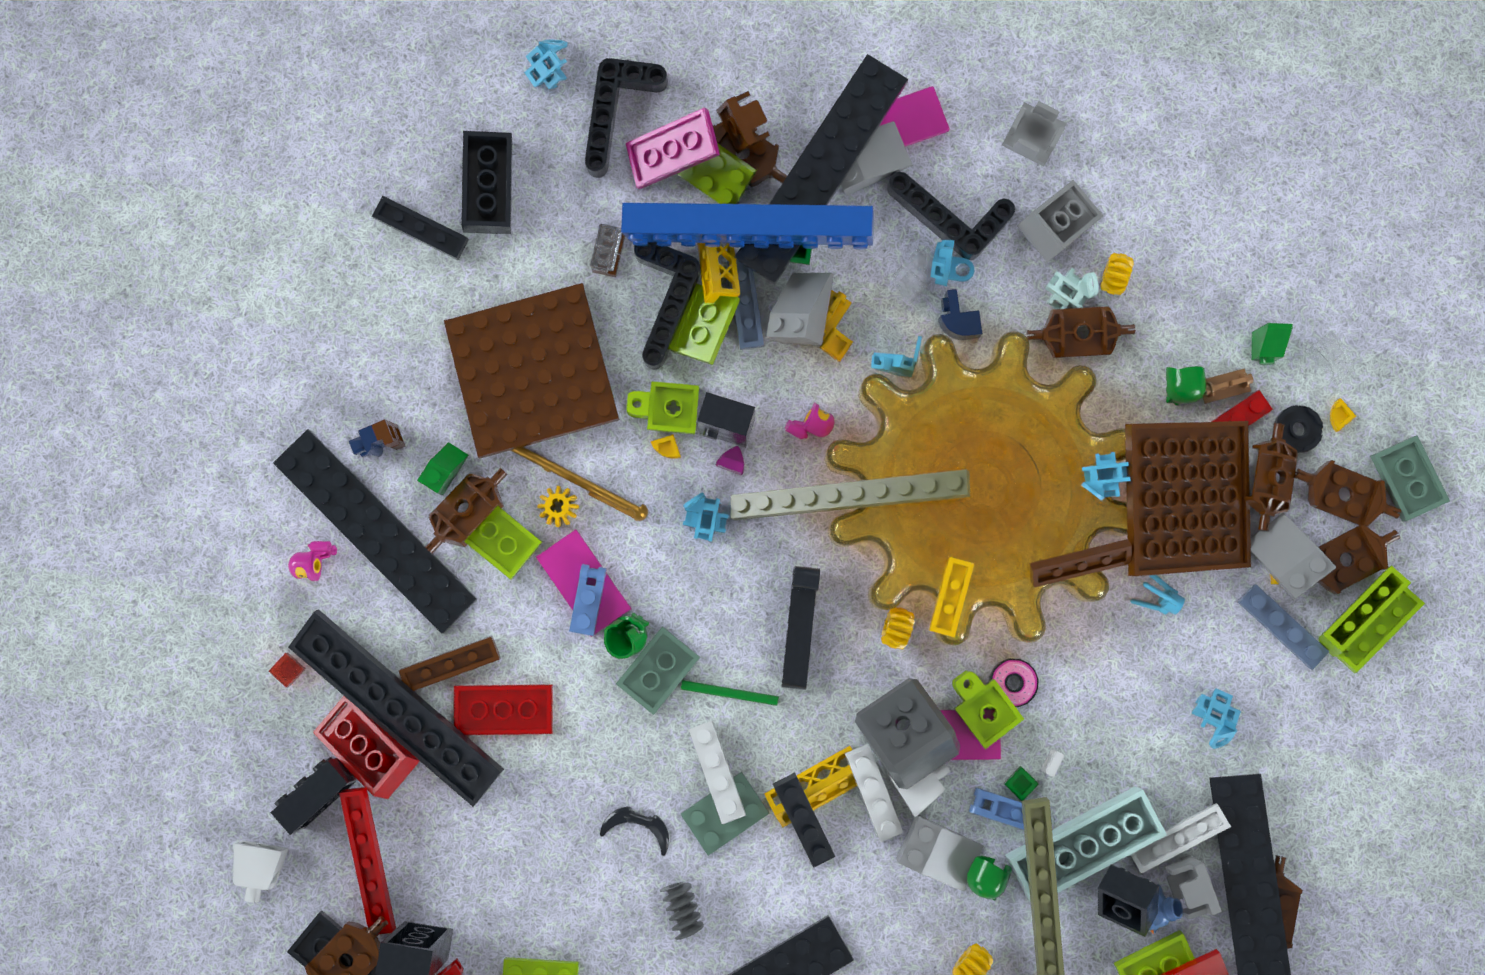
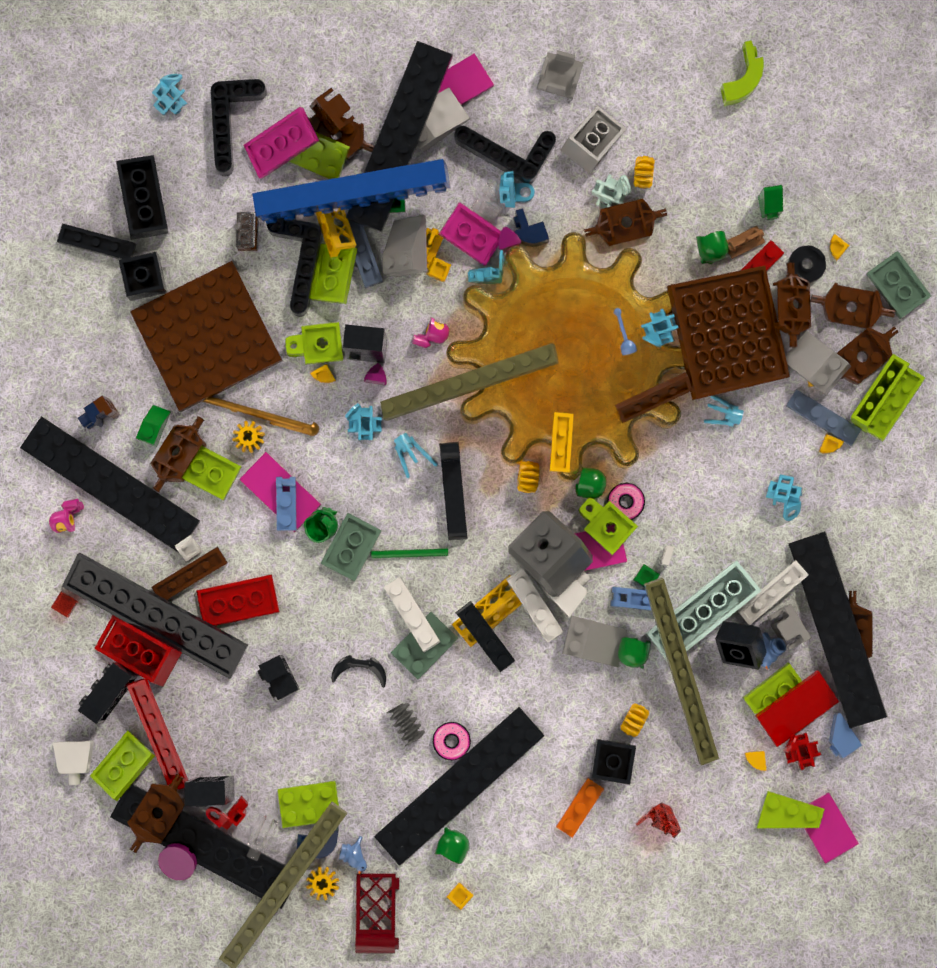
camera: 15 degrees left, 0 degrees up
(315, 890) = (122, 765): none -> lime plate
(455, 630) = (188, 548): none -> white tile
(467, 280) = (143, 276): none -> black brick
(534, 816) = (279, 676): none -> black brick
(735, 927) = (463, 741): none -> tile
(750, 553) = (404, 444): none -> medium azure plant
(886, 308) = (471, 234): none -> dark pink tile
(930, 324) = (508, 239): none -> magenta tile
(976, 653) = (591, 483): none -> green helmet
(1059, 491) = (627, 346): none -> medium blue hinge
(1252, 196) = (739, 90): none -> lime arch
(1285, 662) = (830, 444): none -> yellow tile

